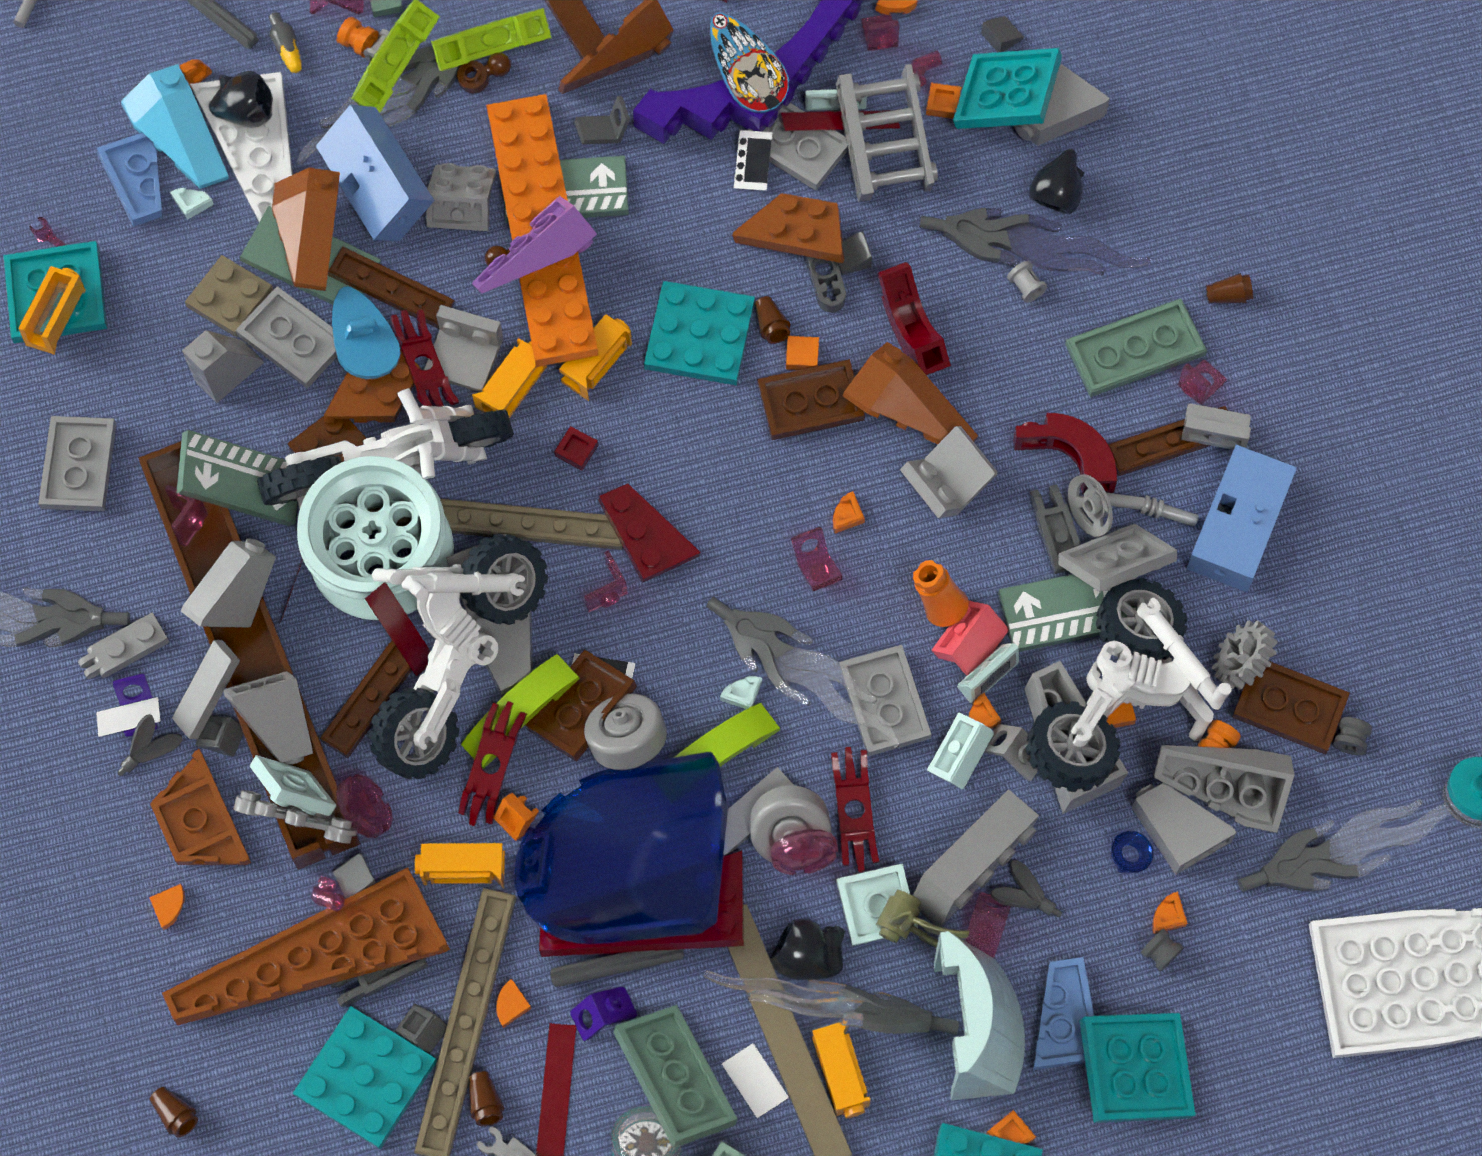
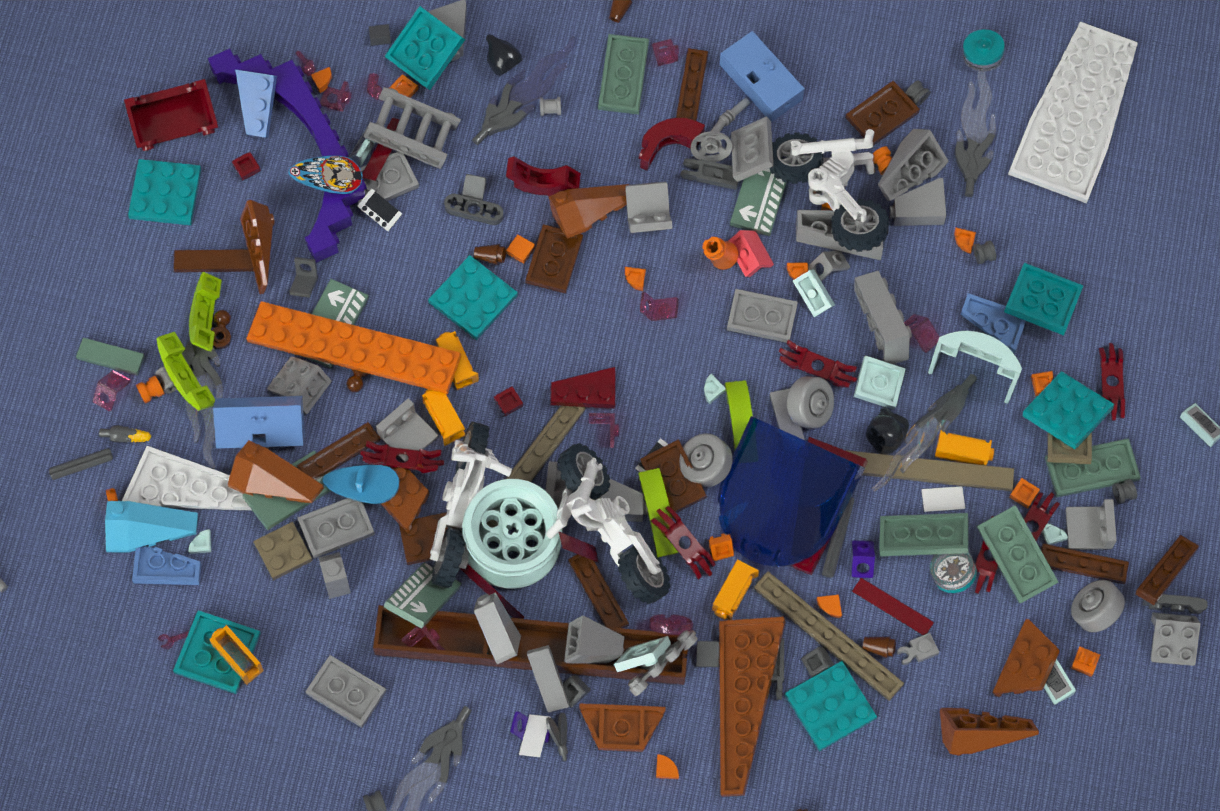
camera: 65 degrees left, 0 degrees up
(124, 647) = (484, 718): light grey hinge -> none
(243, 100) = (158, 475): black piece -> none
(324, 895) = (710, 677): clear pink arm -> none
(555, 235) = (373, 341): medium lavender wedge -> none
(796, 227) = (440, 208): dark orange wing -> none
(800, 666) = (712, 354): clear piece -> none
(804, 850) = (832, 401): clear pink tile -> none
(900, 916) = (897, 372): olive plant -> none
(989, 671) = (776, 253): light aqua slope -> none
(1028, 896) = (916, 301): dark grey piece -> none
(1139, 842) = (924, 232): clear blue piece -> none
(1216, 427) = (700, 58): light grey panel -> none
(1245, 654) = (845, 108): light grey gear -> none

